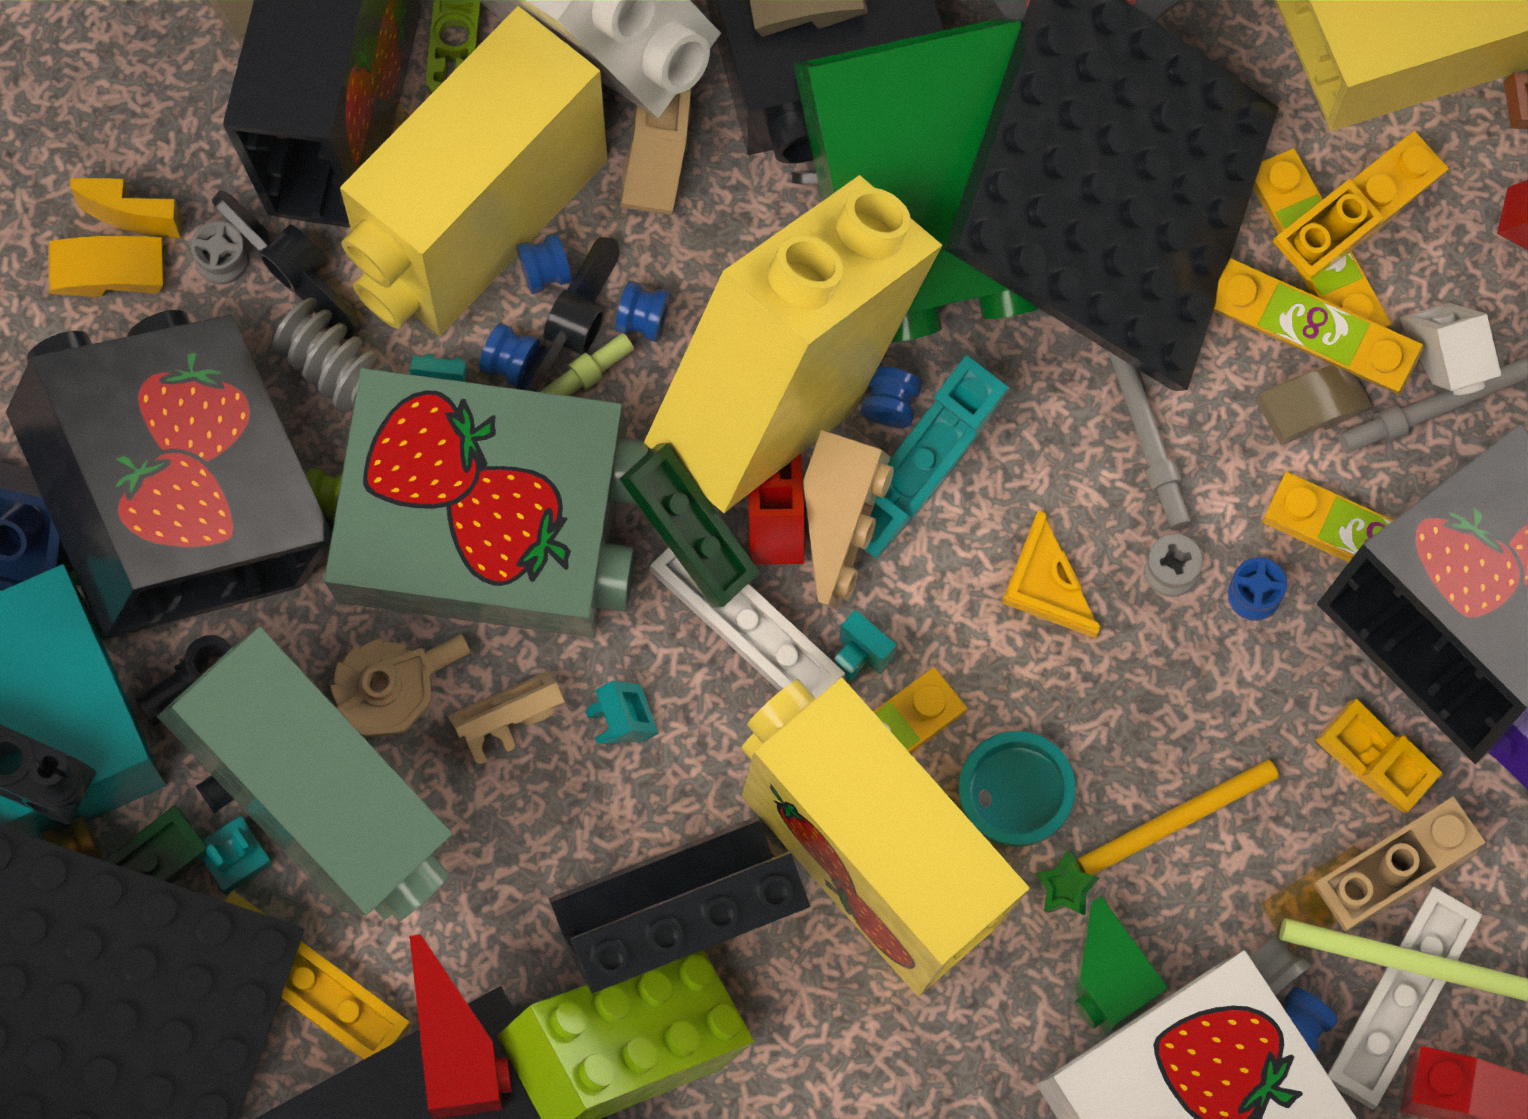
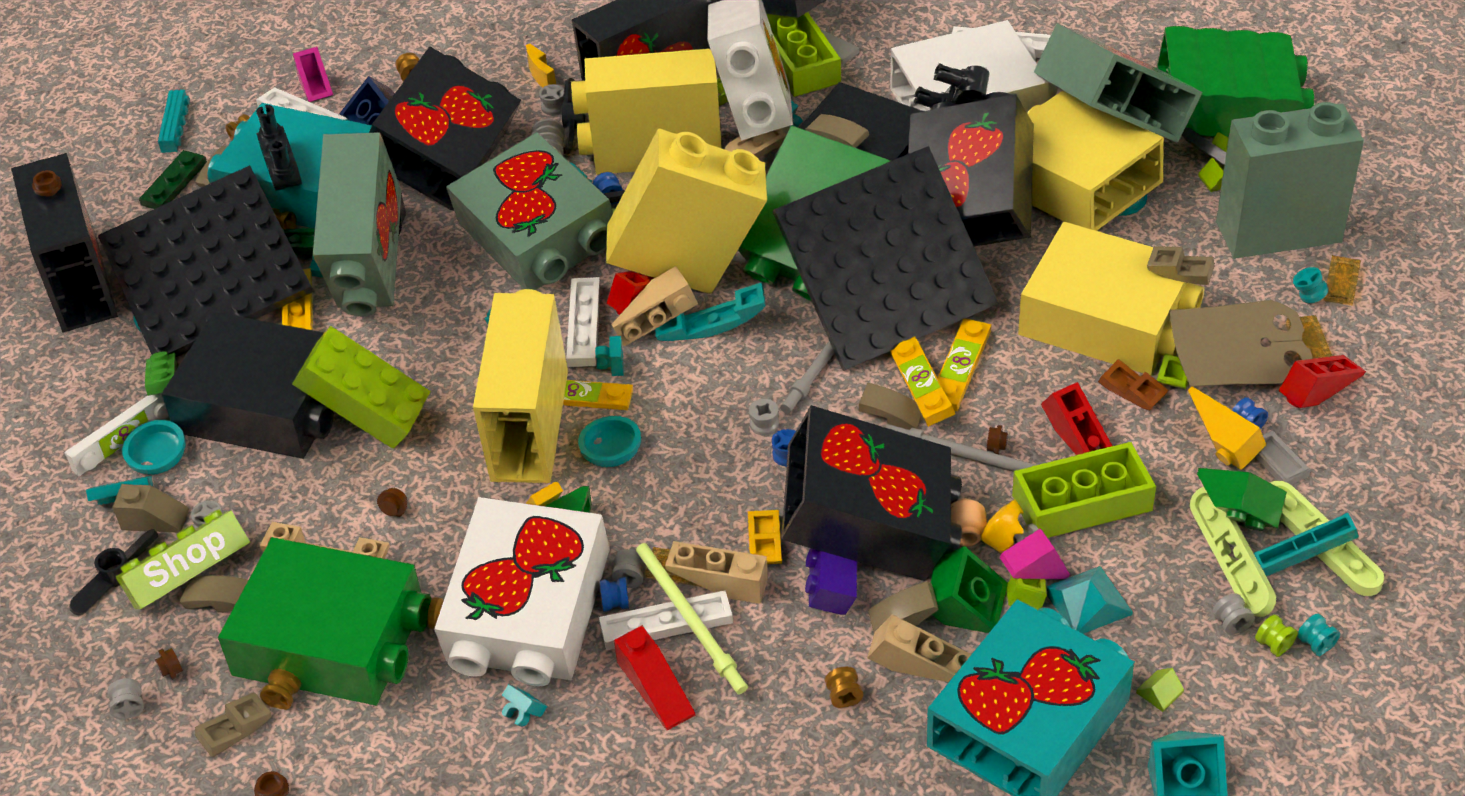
camera: 50 degrees right, 25 degrees down
(105, 263) = (514, 79): yellow slope -> none
(388, 687) = (441, 251): tan piece -> none
(456, 1050) = (298, 331): red slope -> none
(525, 702) = (476, 288): tan plate -> none
(677, 904) = (421, 353): black panel -> none
(689, 525) = (591, 261): dark green plate -> none
(891, 397) = (725, 290): blue wheel -> none
(1047, 584) = (711, 390): yellow tile -> none
(1065, 977) = (546, 495): none -> yellow tile
(1066, 885) = (591, 481): green piece -> none
(1178, 818) = (659, 499): yellow bar -> none
(1360, 206) = (980, 354): yellow slope -> none
(1456, 346) = (968, 421): white slope -> none
(1507, 339) = (997, 439): none -> reddish brown plate

